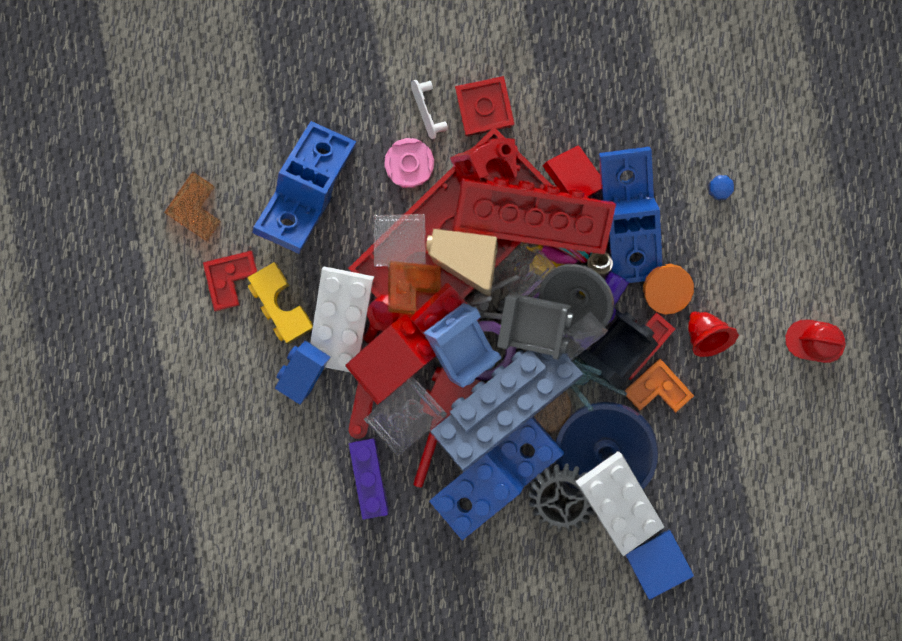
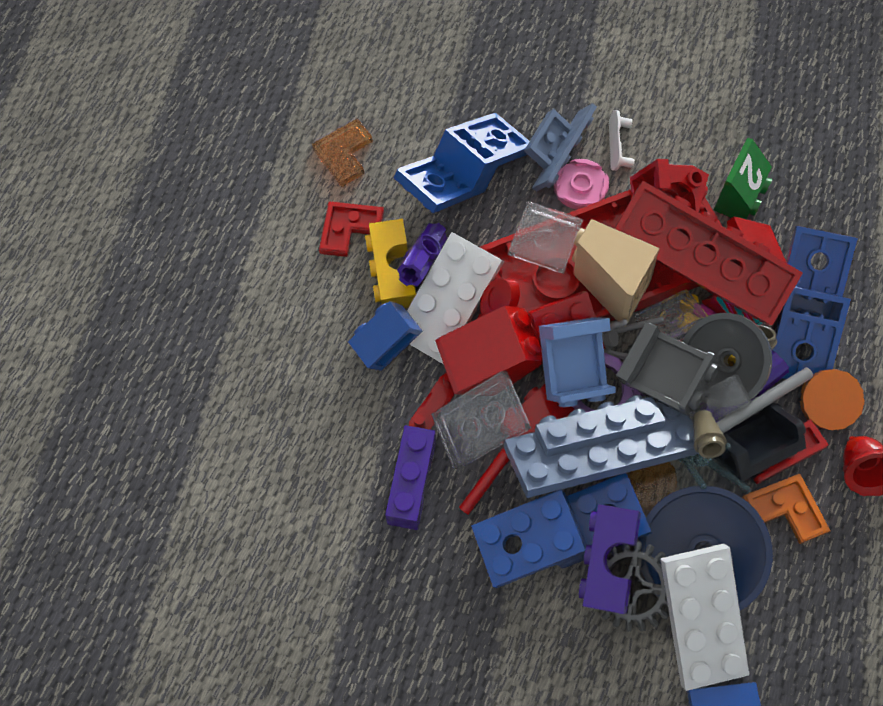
camera: 20 degrees right, 20 degrees down
(304, 290) = (422, 254): none -> dark purple piece
(373, 134) = (554, 142): none -> sand blue bracket
(405, 280) = (540, 272): clear orange tile -> none
(484, 106) = (682, 148): red plate -> none
(542, 514) = (611, 528): none -> dark purple arch
(546, 118) = (745, 183): none -> green slope
(581, 369) = (708, 437): none -> dark tan cone
(616, 317) = (765, 399): none -> light grey bar

